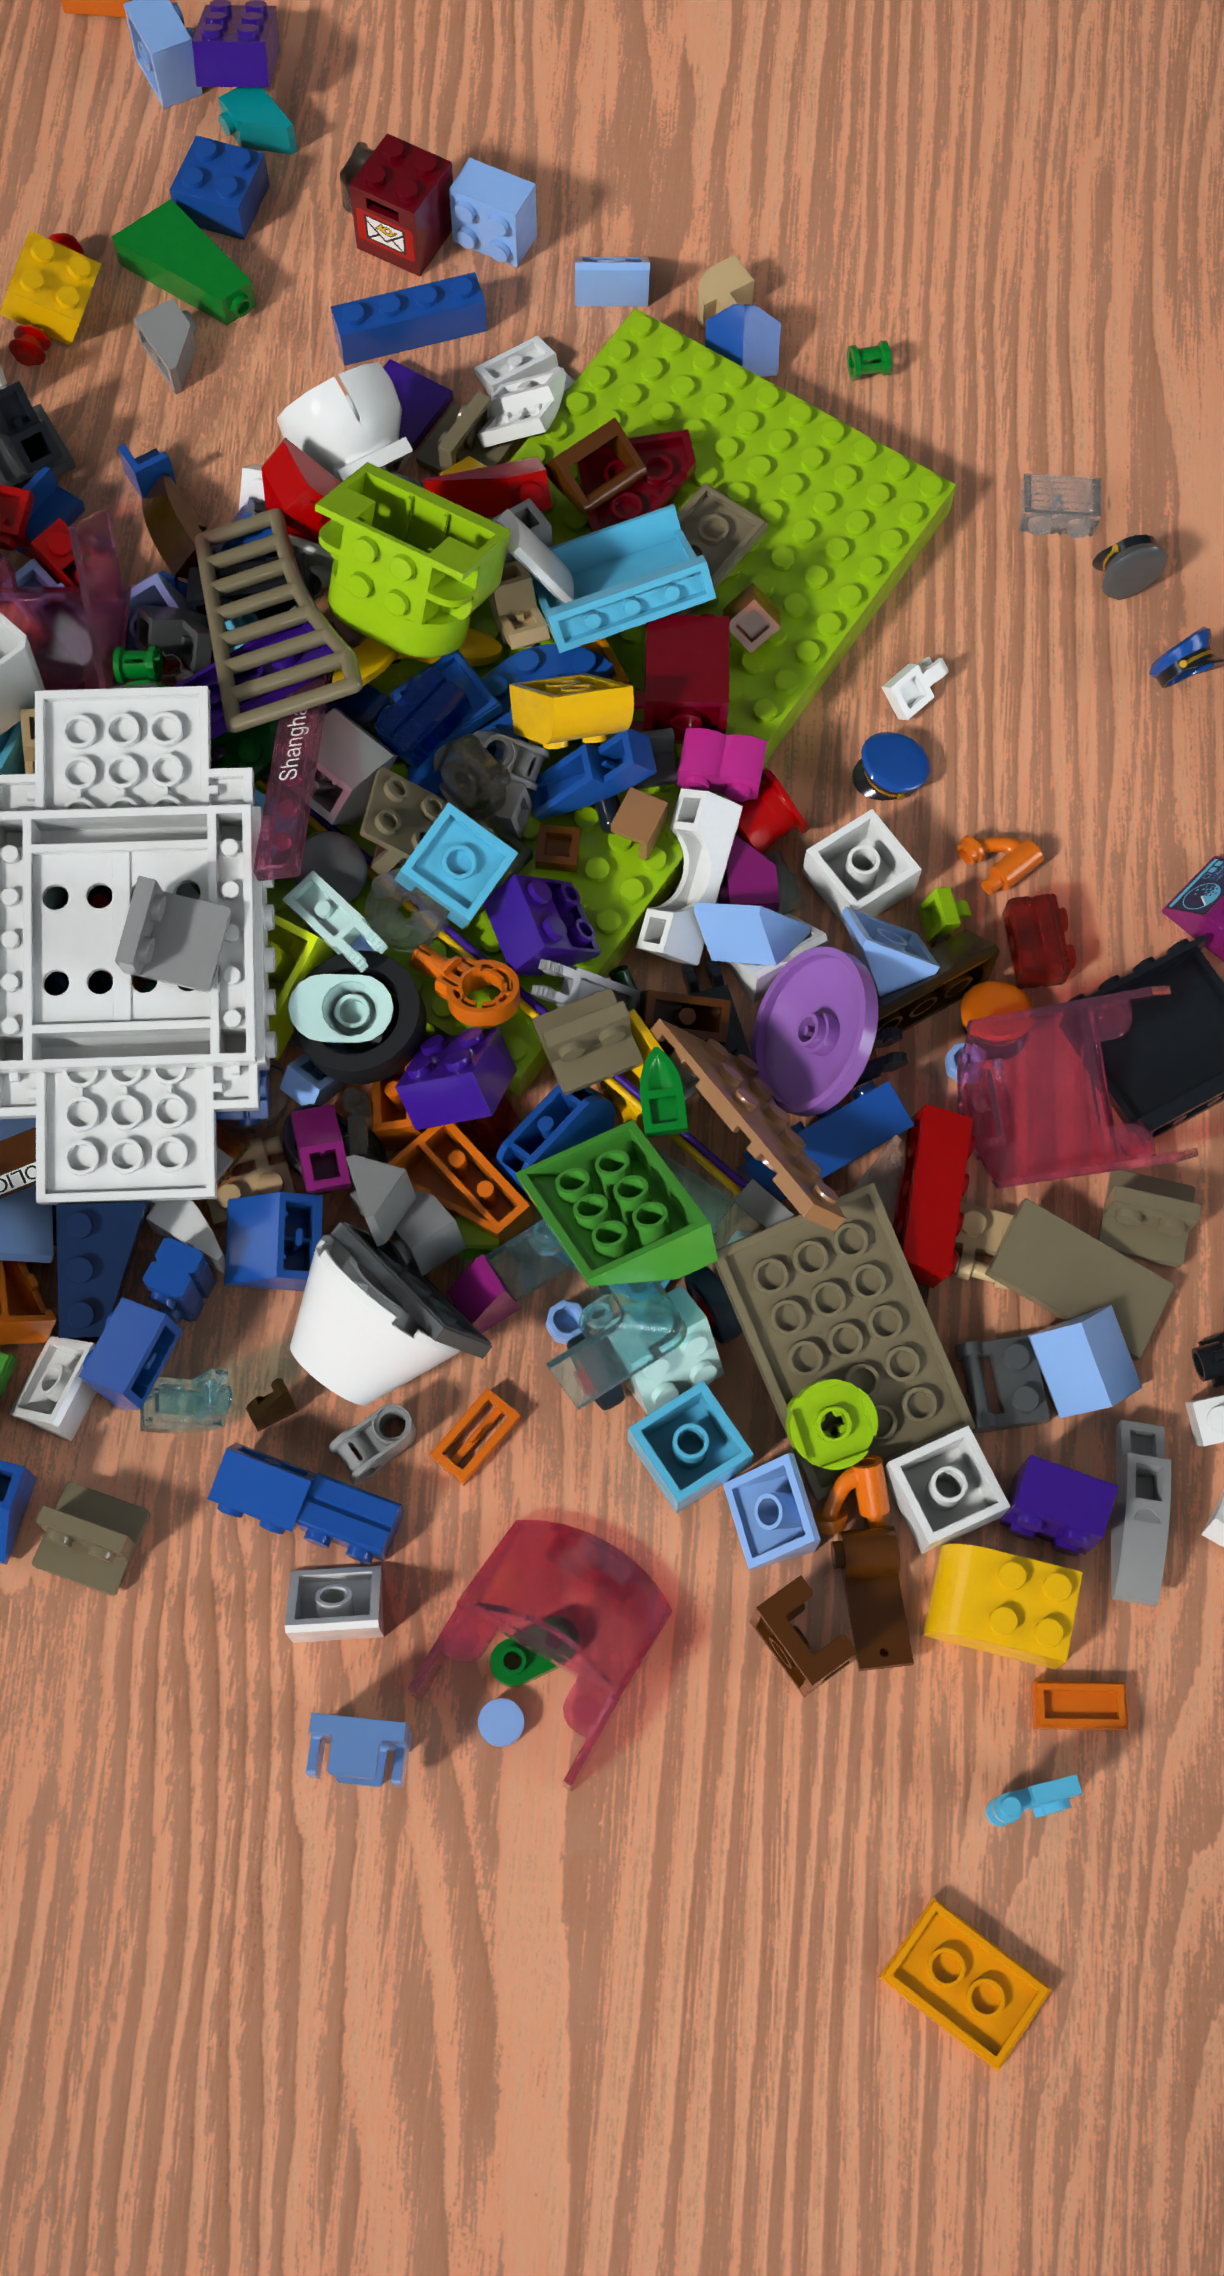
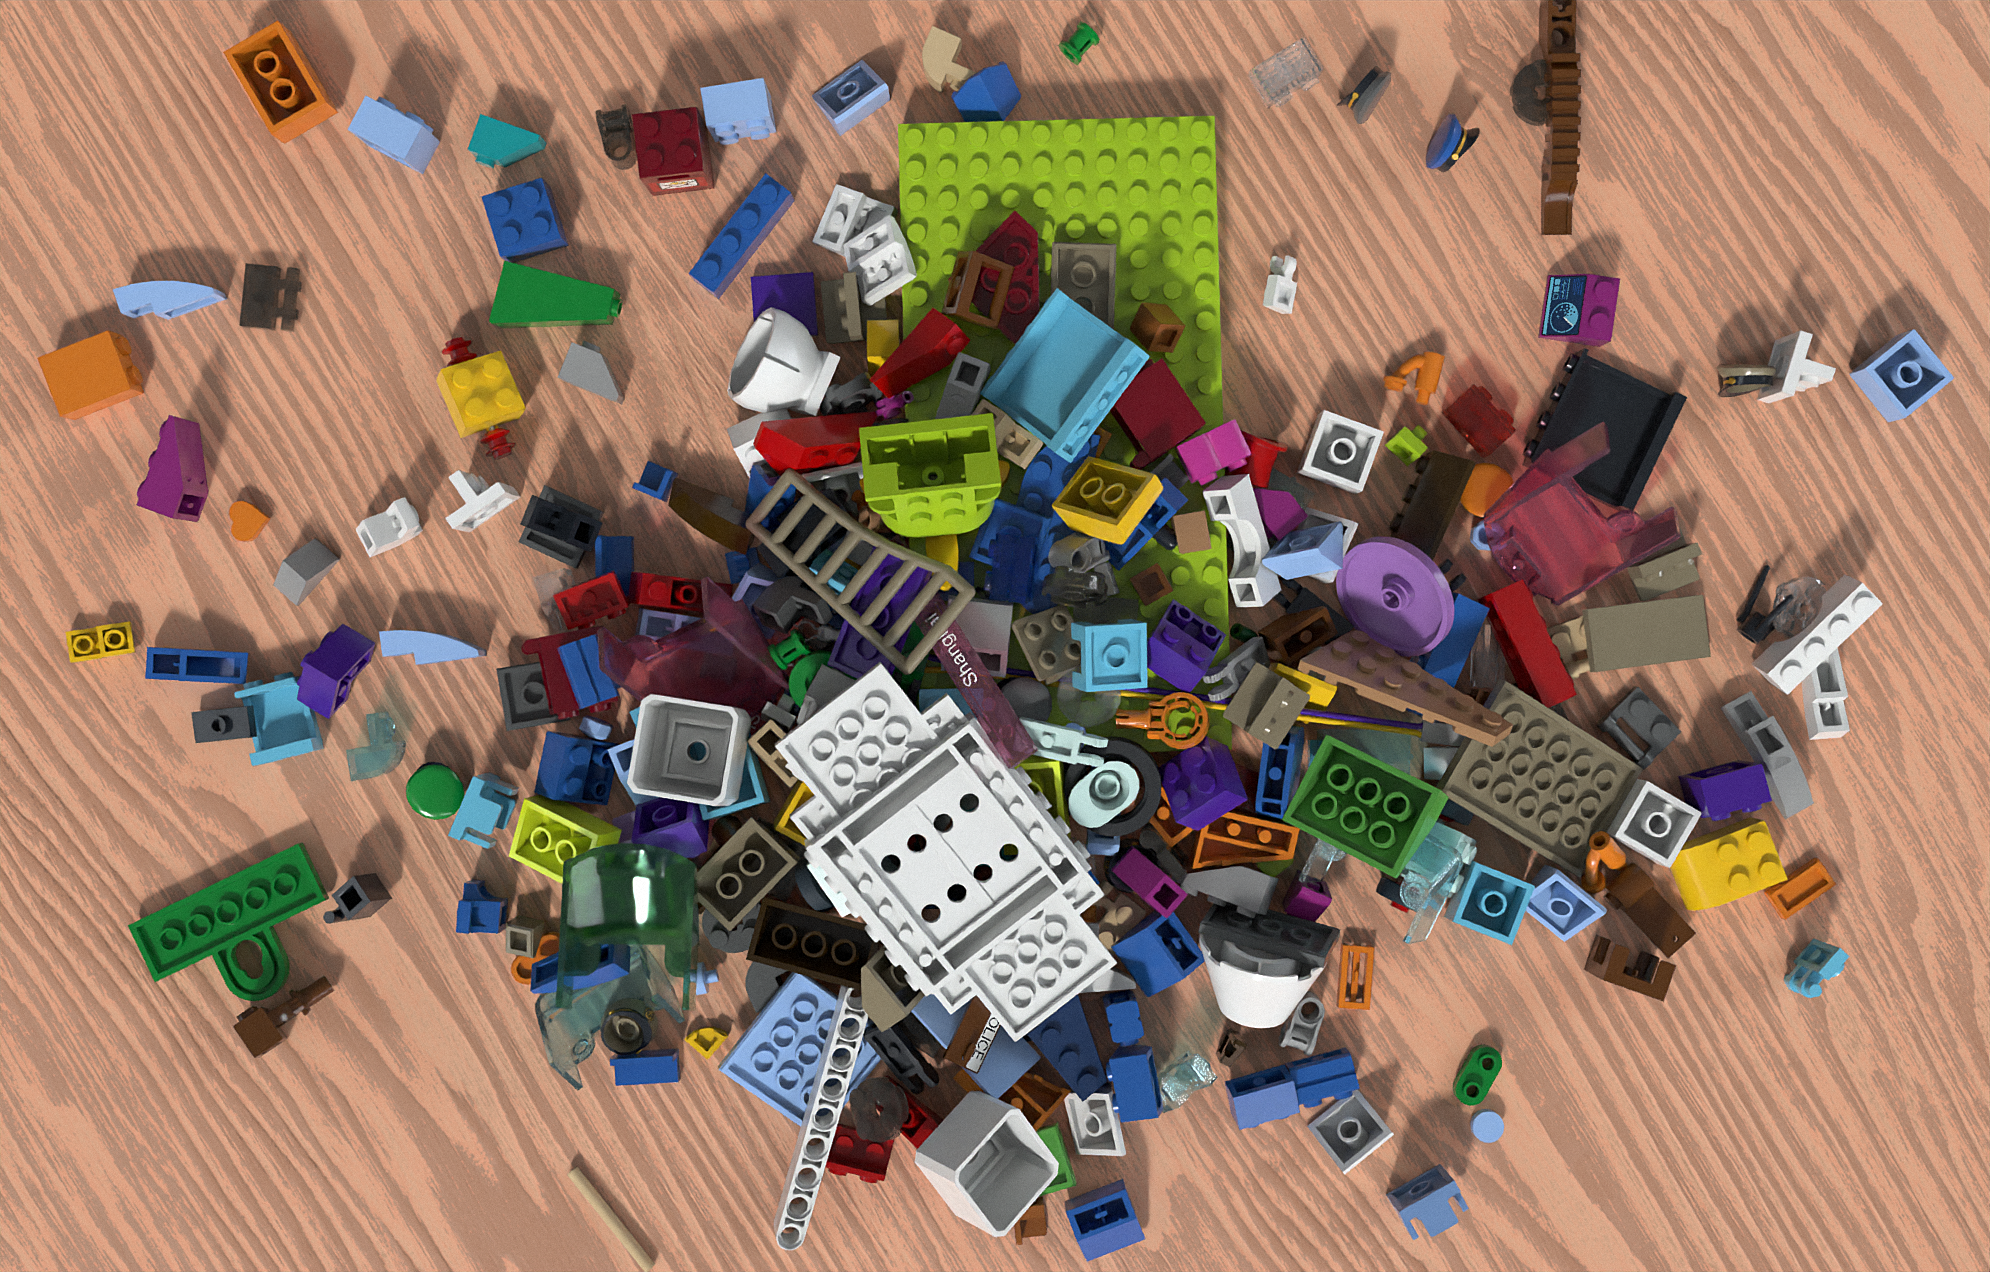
camera: 35 degrees left, 20 degrees up
(89, 1538) = (1182, 1190): dark tan bracket -> none
(172, 937) = (991, 842): light grey bracket -> none
(236, 44) = (447, 97): dark purple brick -> none
(383, 1194) = (1214, 892): light grey slope -> none
(538, 558) = (1006, 400): white slope -> none
(564, 1321) = (1360, 873): light blue tile -> none
(568, 1603) = (1484, 1042): clear pink windscreen -> none
(662, 1096) = (1339, 712): green plate -> none
(854, 1435) = (1551, 831): lime plate -> none
(889, 952) = (1404, 504): light blue slope -> none
(890, 767) = (1305, 358): blue piece -> none
(965, 1984) = (1831, 1084): light orange tile -> none
(1085, 1363) = (1684, 685): light blue slope -> none

